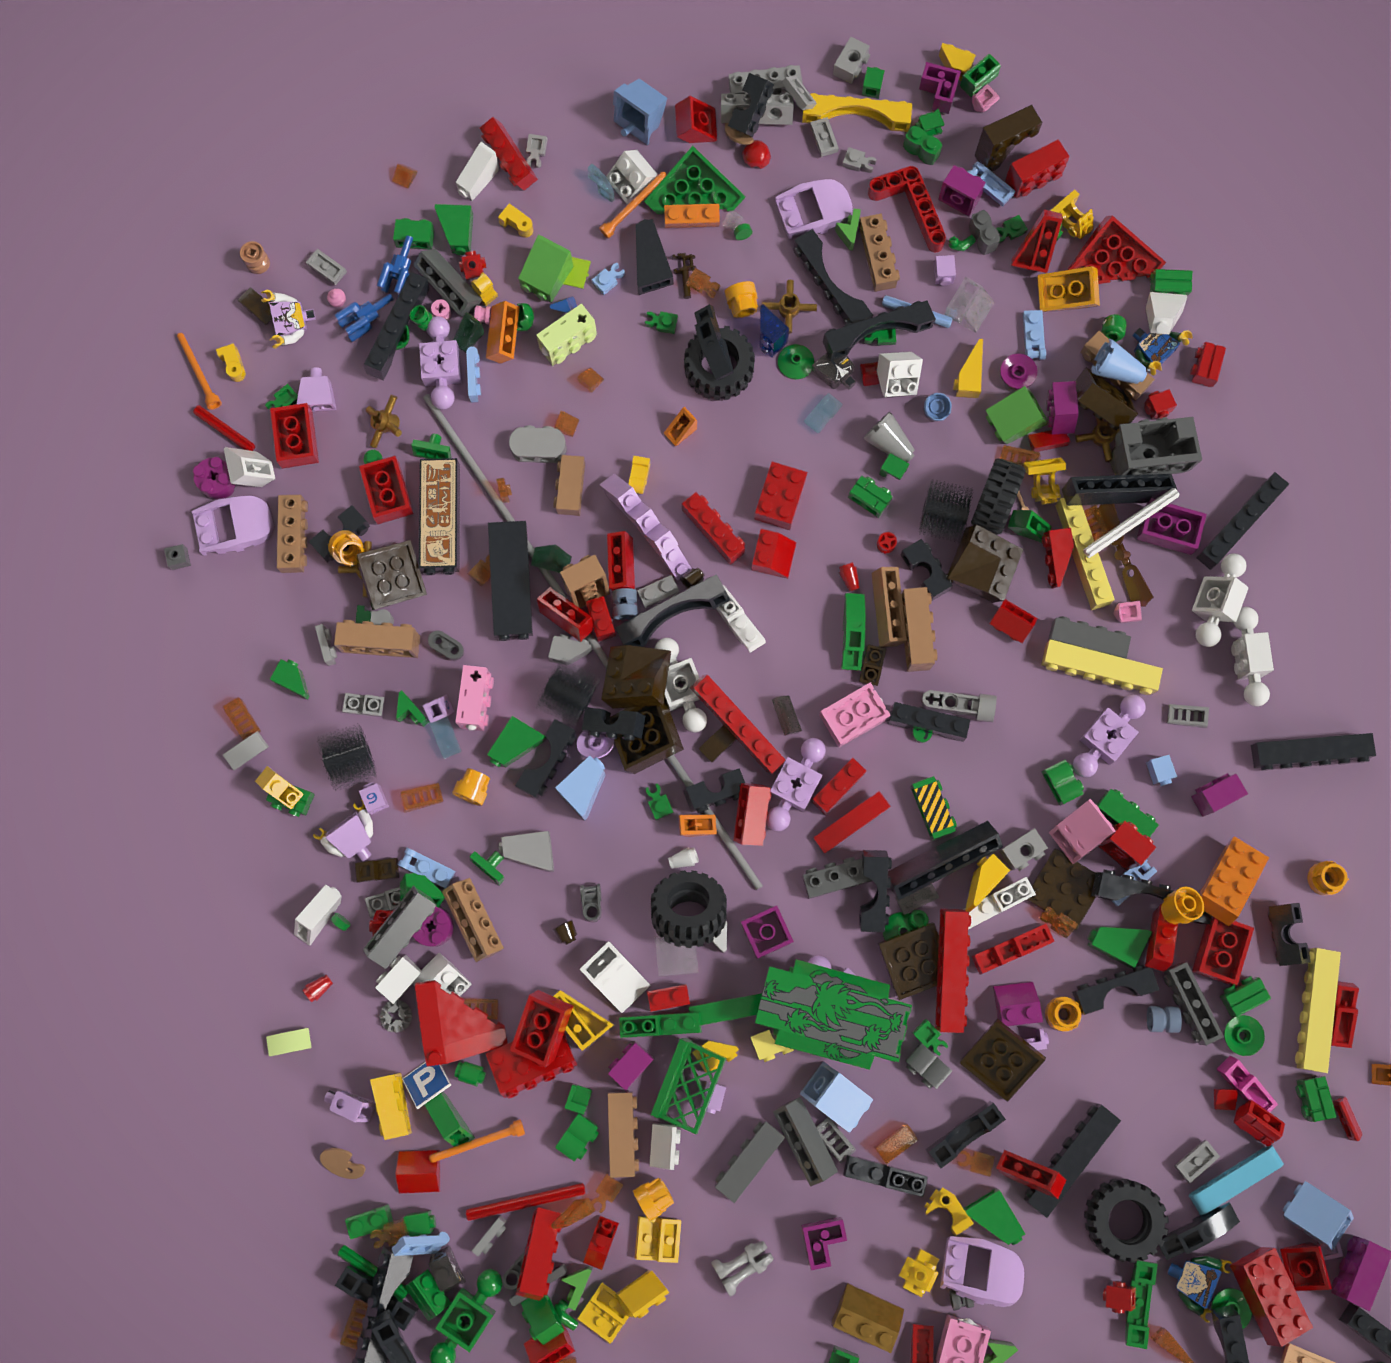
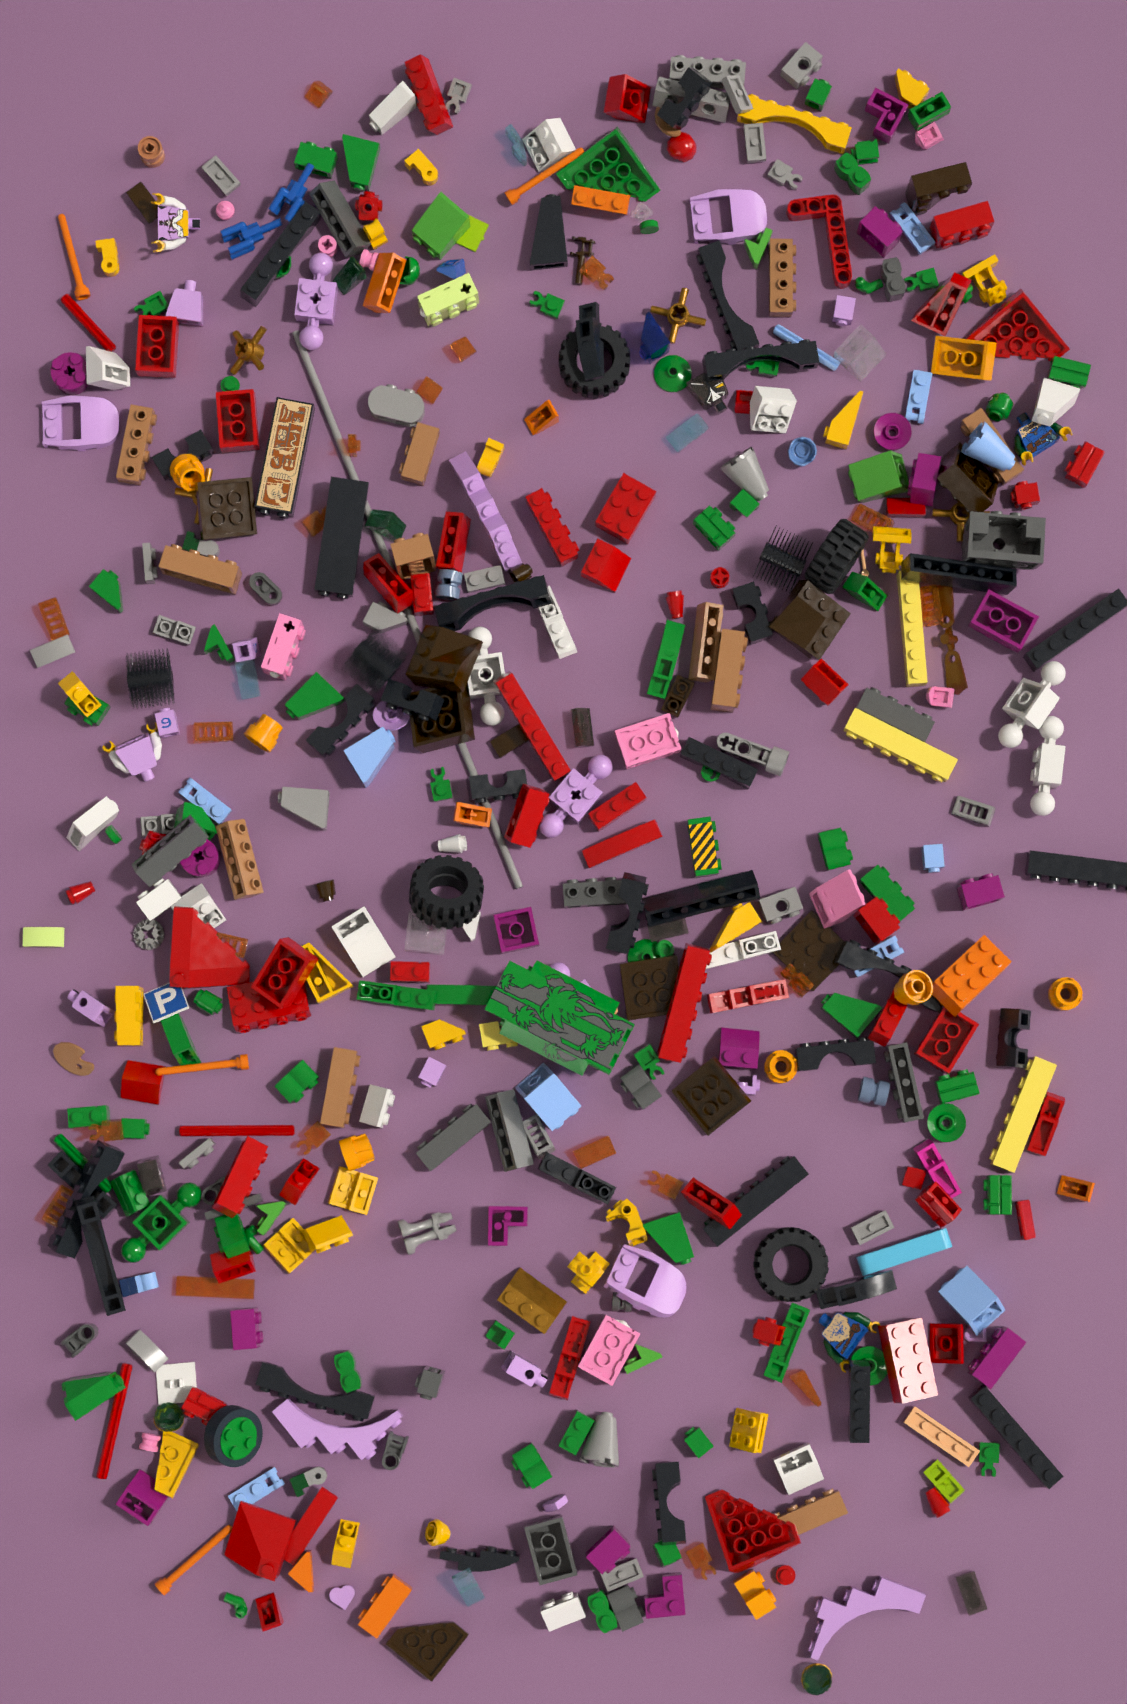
camera: 10 degrees right, 5 degrees up
(182, 559) = (22, 450): dark grey plate -> none
(377, 870) = (157, 793): dark brown slope -> none
(420, 1245) = (132, 1145): light blue plate -> none
(421, 317) = (306, 251): green wheel -> none
(431, 449) = (290, 388): green tile -> none
(473, 373) = (346, 319): light blue plate -> none
(488, 866) = (264, 812): green tile -> none
(576, 1211) = (283, 1147): clear orange slope -> none
(578, 1099) = (305, 1047): green panel -> none
(591, 898) = (356, 863): dark grey piece -> none
(607, 280) = (500, 249): light blue plate -> none
(630, 1065) = (360, 1026): magenta brick -> none
(638, 109) = (570, 76): medium blue piece -> none
(672, 1079) = (396, 1050): green fence -> none
(742, 299) = (632, 299): light orange piece -> none
(966, 1132) = (660, 1156): black arch -> none
(1058, 552) = (887, 619): red slope -> none
(1096, 736) = (918, 791): lavender brick -> none
(1131, 522) = (961, 610): white axle -> none

